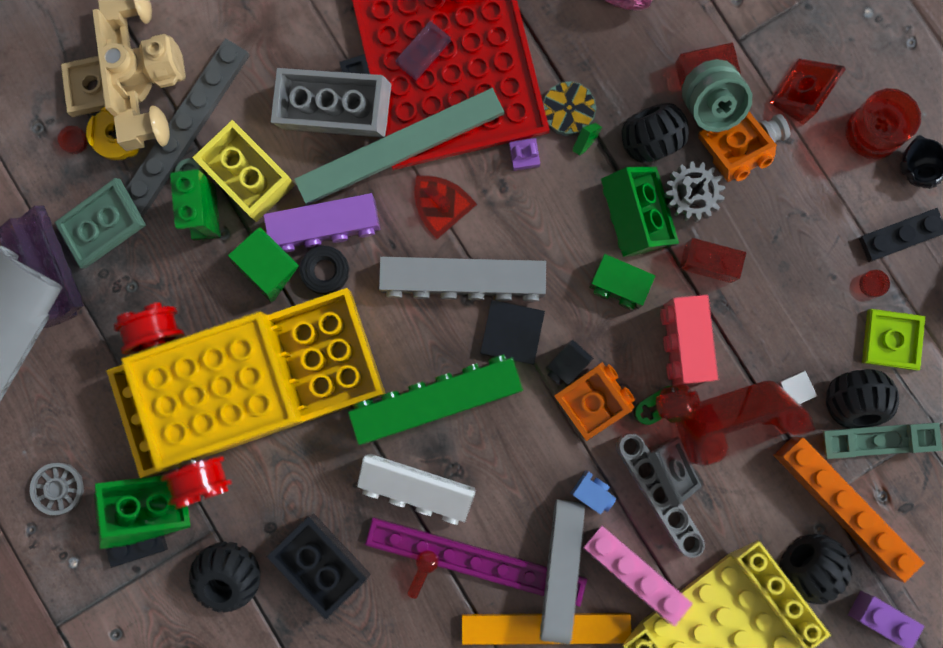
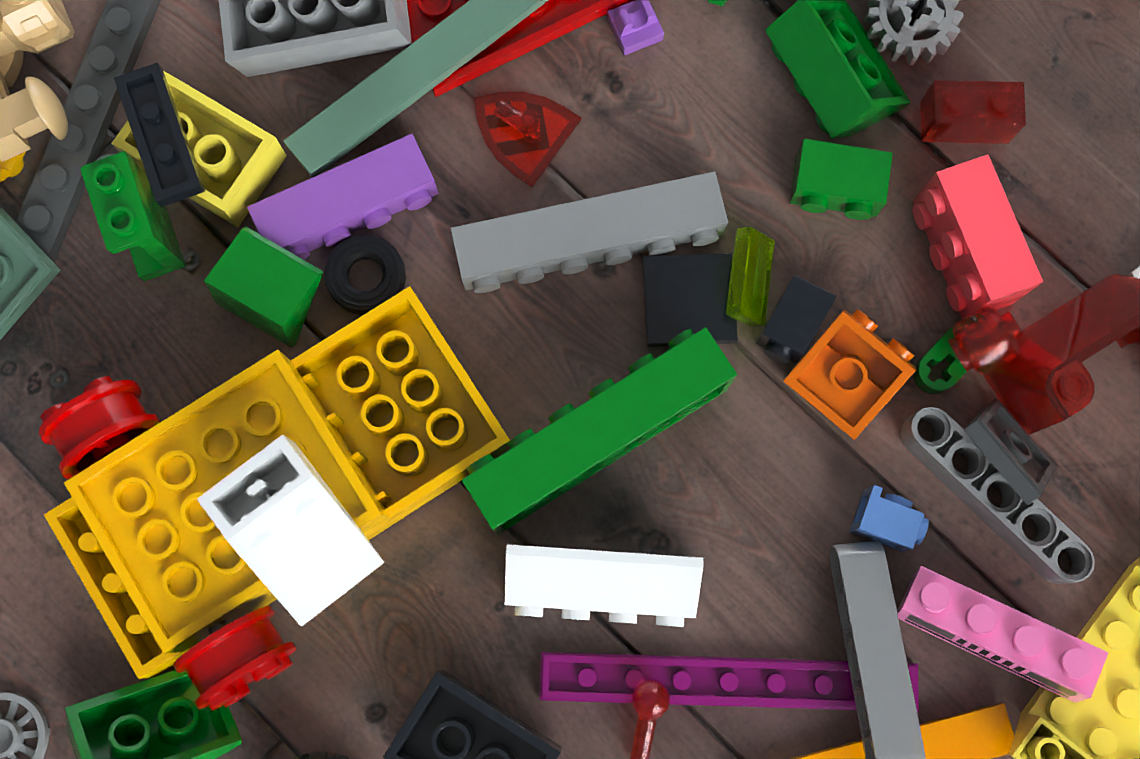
camera: 15 degrees left, 5 degrees down
(221, 161) = (159, 134): none -> black plate
(243, 420) = (291, 529): none -> white slope
(551, 328) = (750, 277): none -> clear neon green tile

